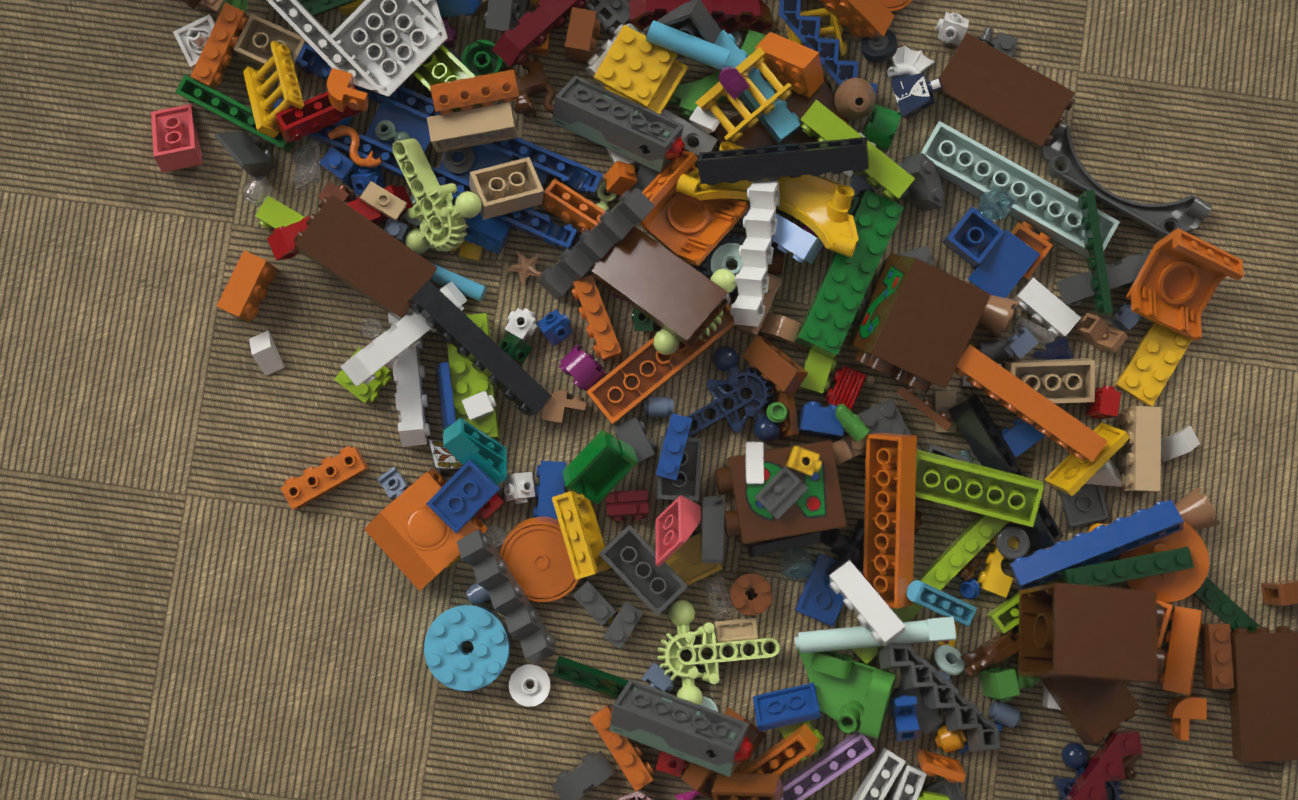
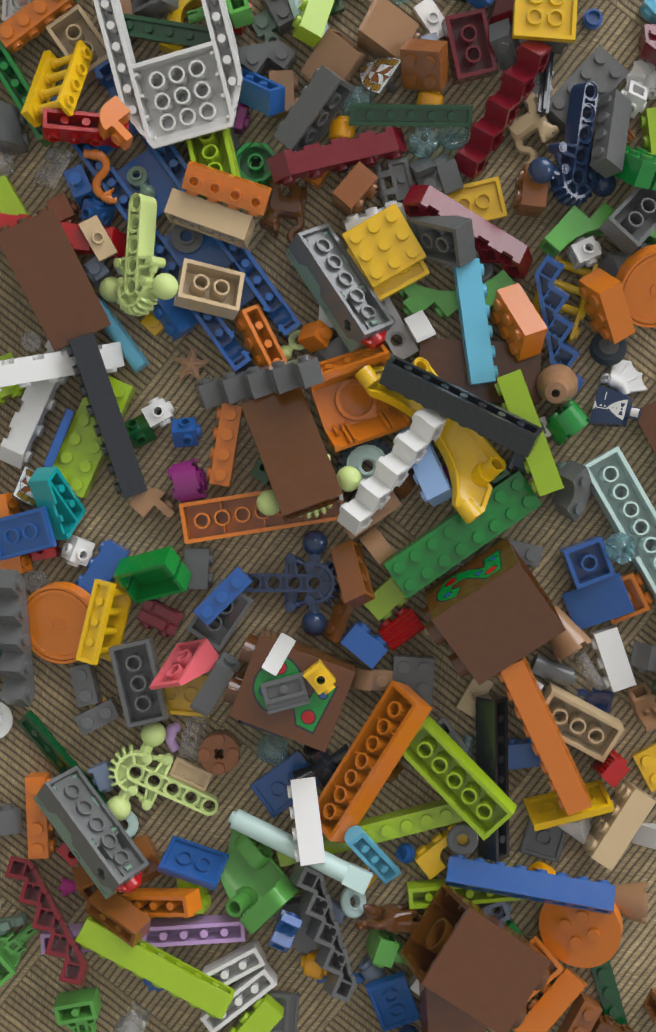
camera: 35 degrees right, 5 degrees up
(479, 405) = (79, 464): white brick -> none
(658, 406) = (235, 550): sand blue brick -> none
(688, 45) = (438, 255): medium azure brick -> none
(696, 601) = (171, 732): none -> lavender arm
(709, 102) = (448, 312): yellow fence -> none
(733, 81) = (457, 310): magenta plate -> none
(776, 412) = (329, 614): bright green plate -> none
(851, 423) = (385, 663): bright green hinge -> none
(925, 407) = (459, 684): dark orange plate -> none
(941, 765) = (293, 983): orange plate -> none
(967, 571) = (410, 840): reddish brown arm -> none
(1020, 343) = (570, 678): sand blue brick -> none
(1039, 729) = (393, 1001): none -> blue tile
(1130, 568) = (544, 920): dark green plate -> none

